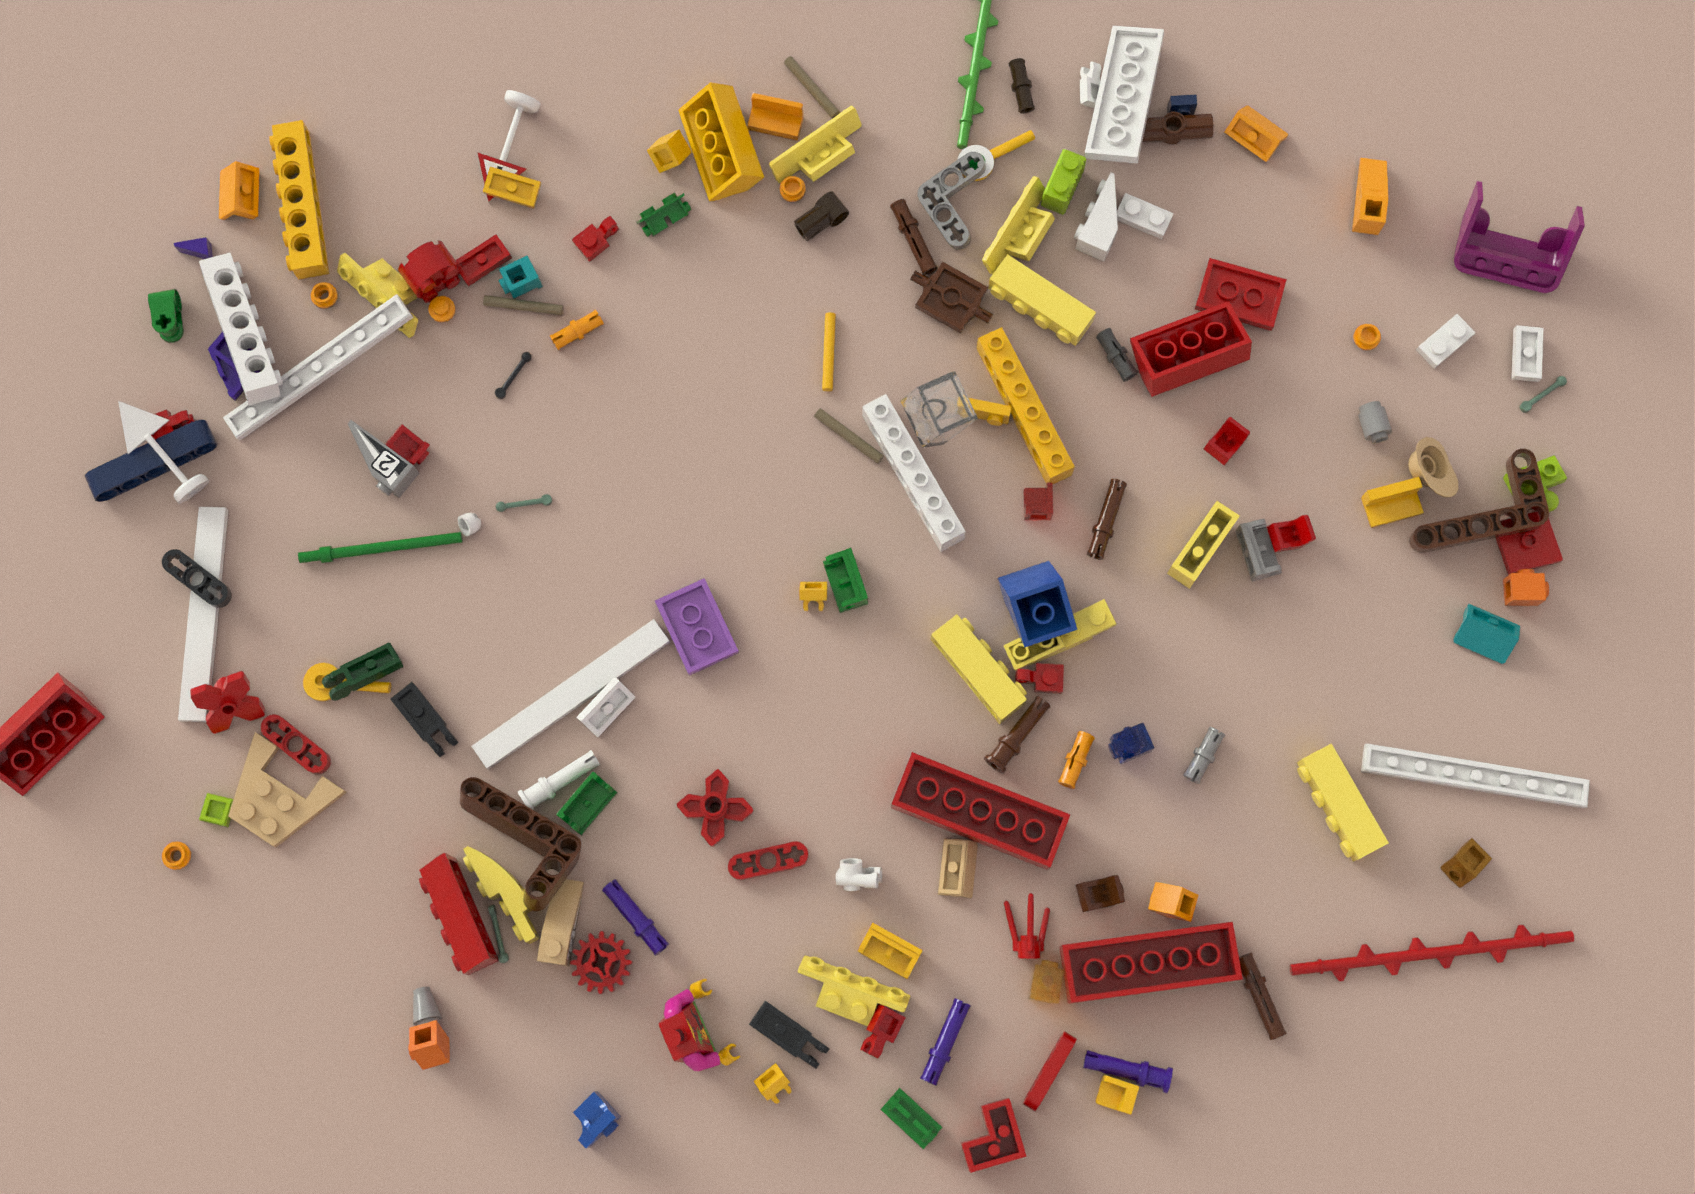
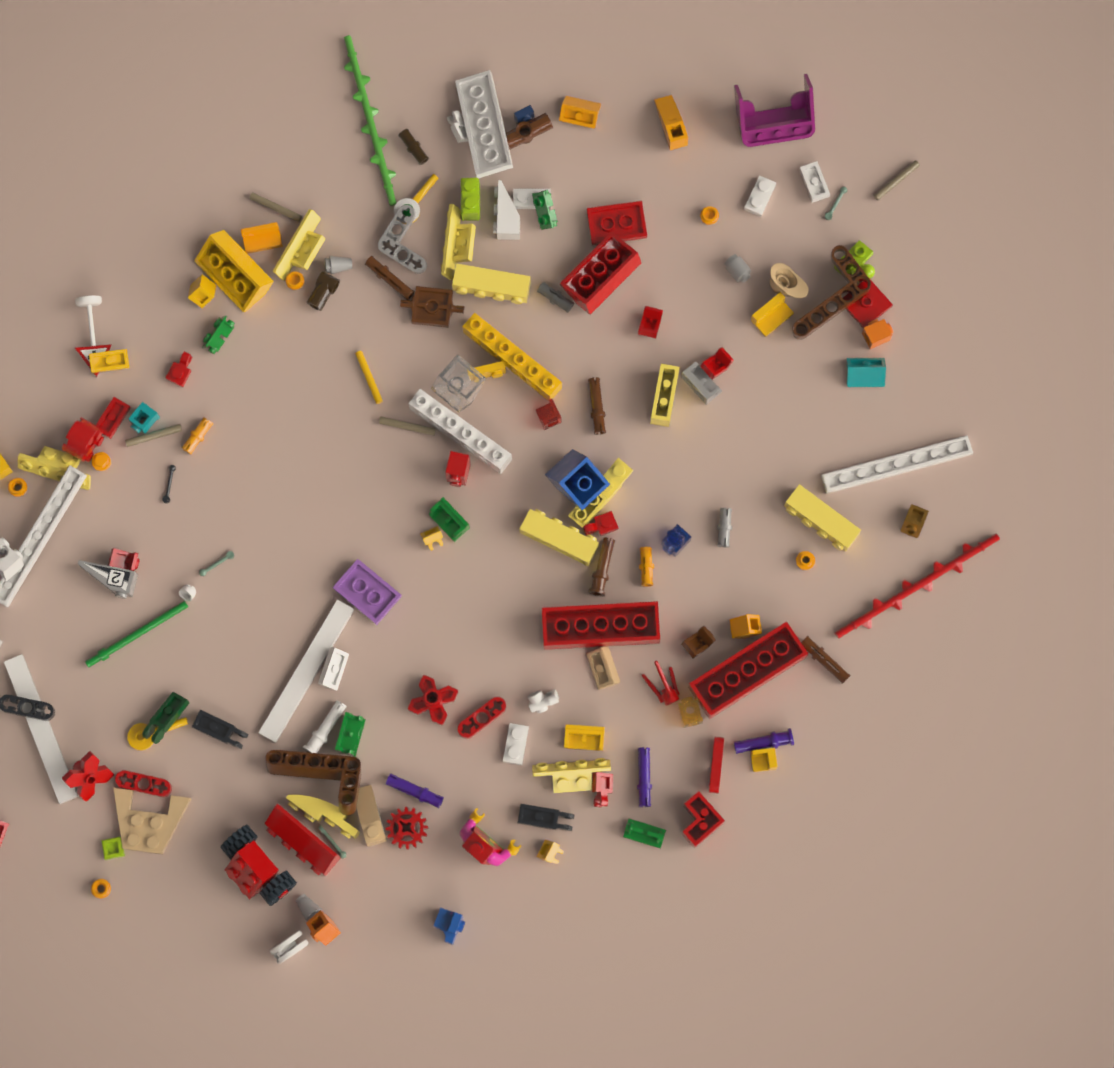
camera: 25 degrees left, 0 degrees up
(371, 1051) = (288, 947): none -> white head
(375, 923) = (253, 869): none -> brick
(796, 916) = (515, 744): none -> white plate
(855, 191) = (337, 264): none -> light grey cone
(887, 519) = (458, 469): none -> red brick
(1154, 224) = (546, 217): none -> green hinge
(1286, 853) = (805, 566): none -> light orange plate
(1639, 398) = (896, 180): none -> dark tan bar

